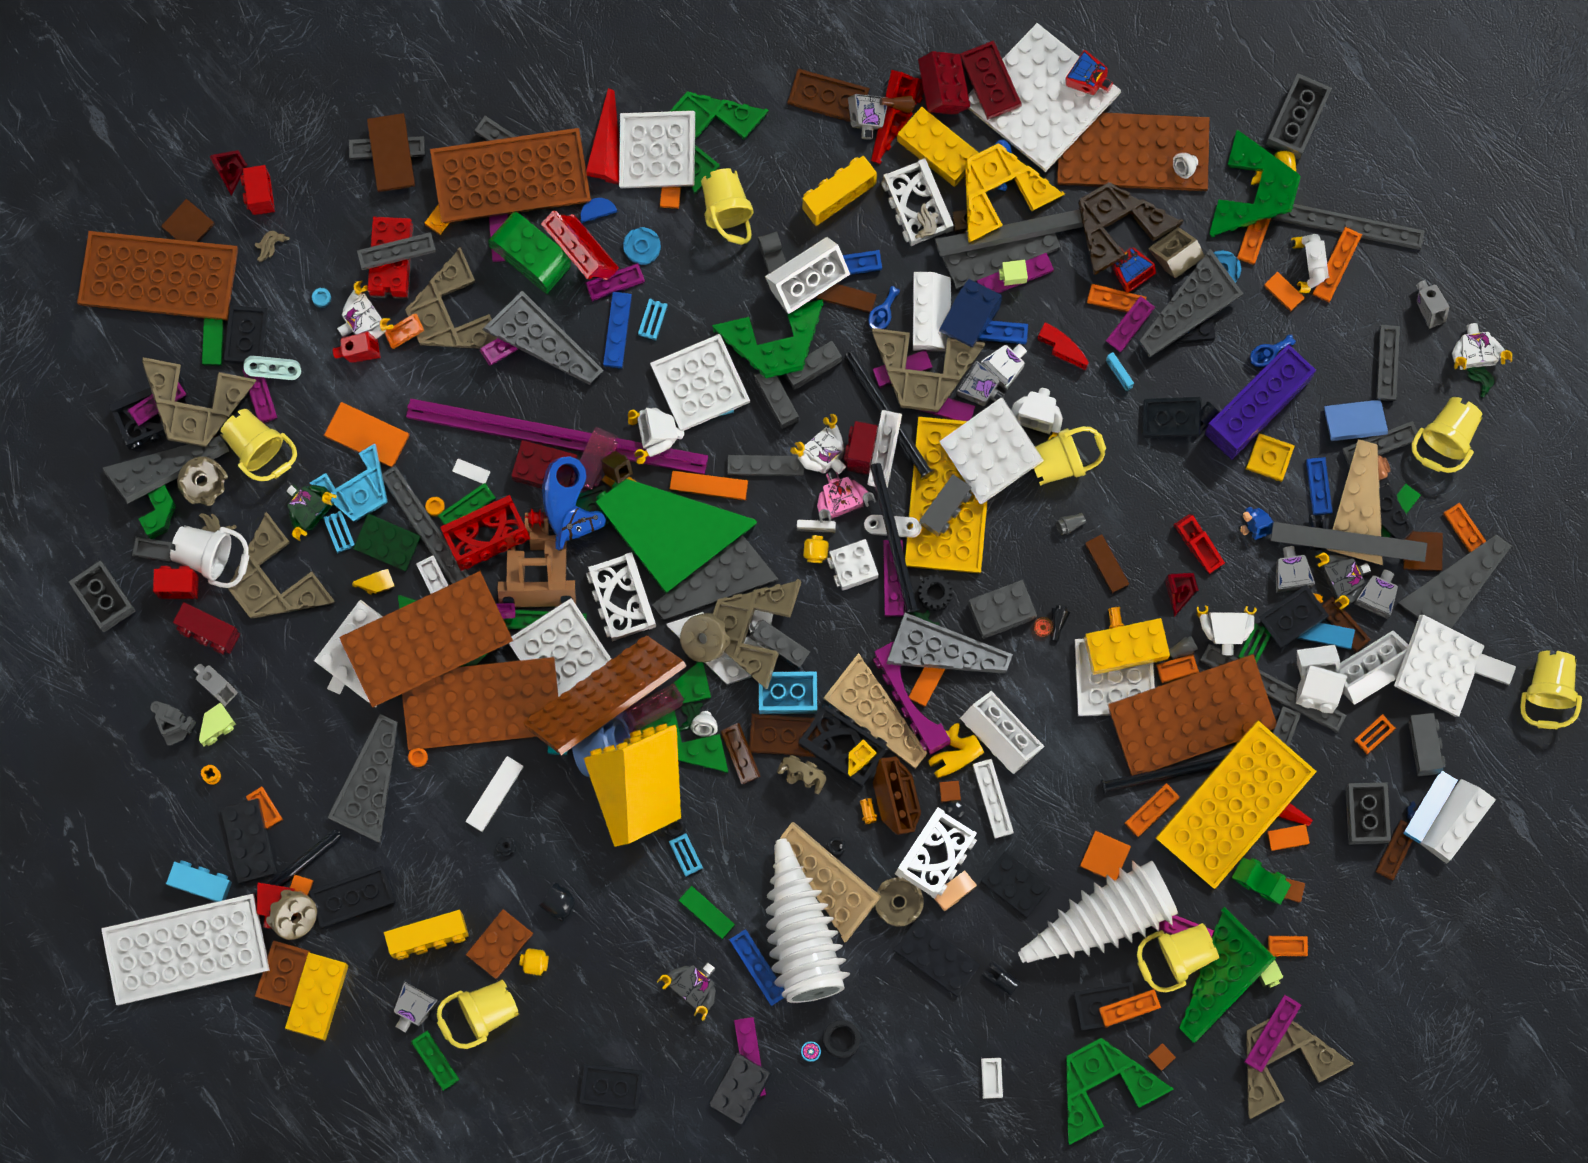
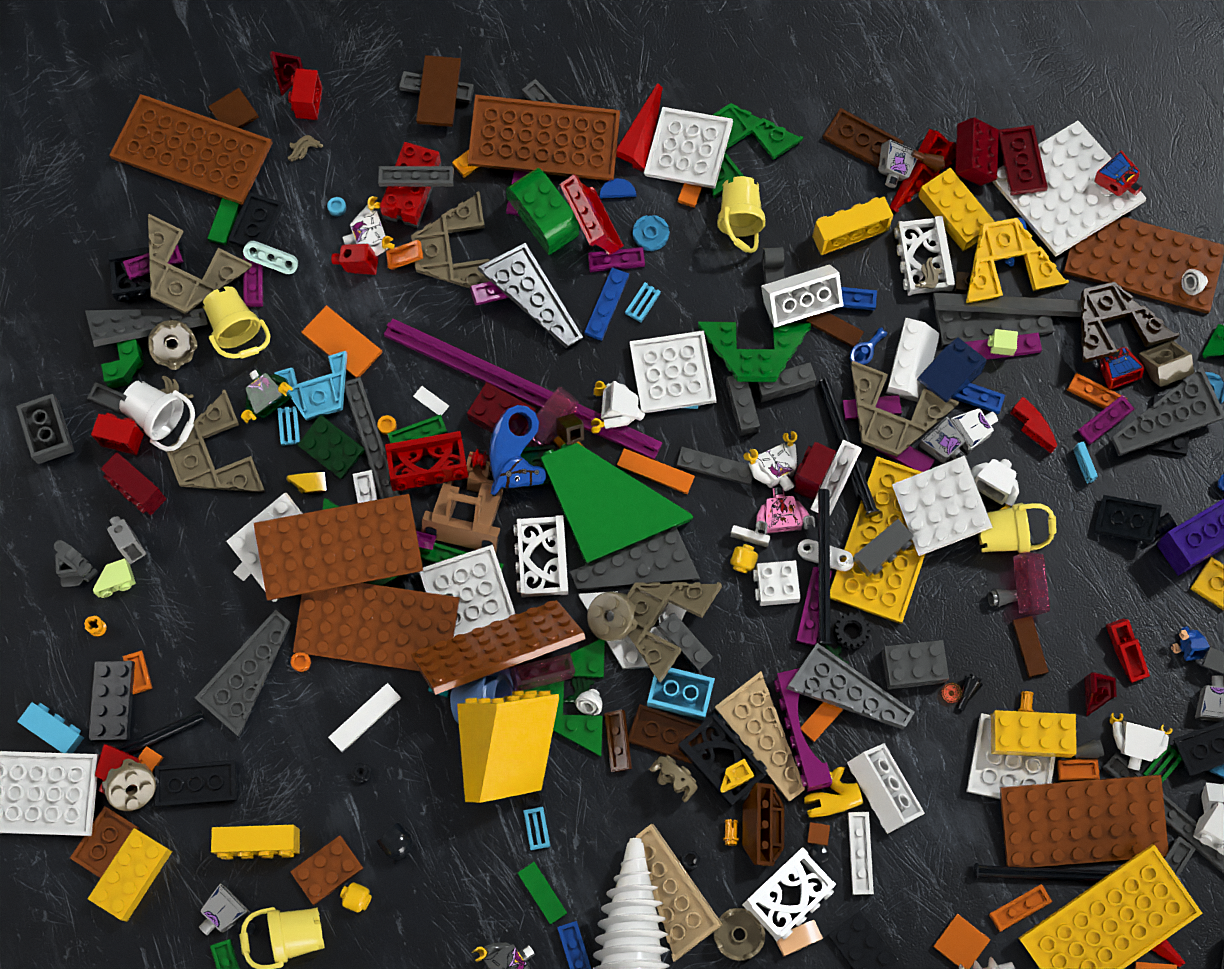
camera: 15 degrees right, 5 degrees down
(1094, 503) = (1031, 583): none -> clear pink brick

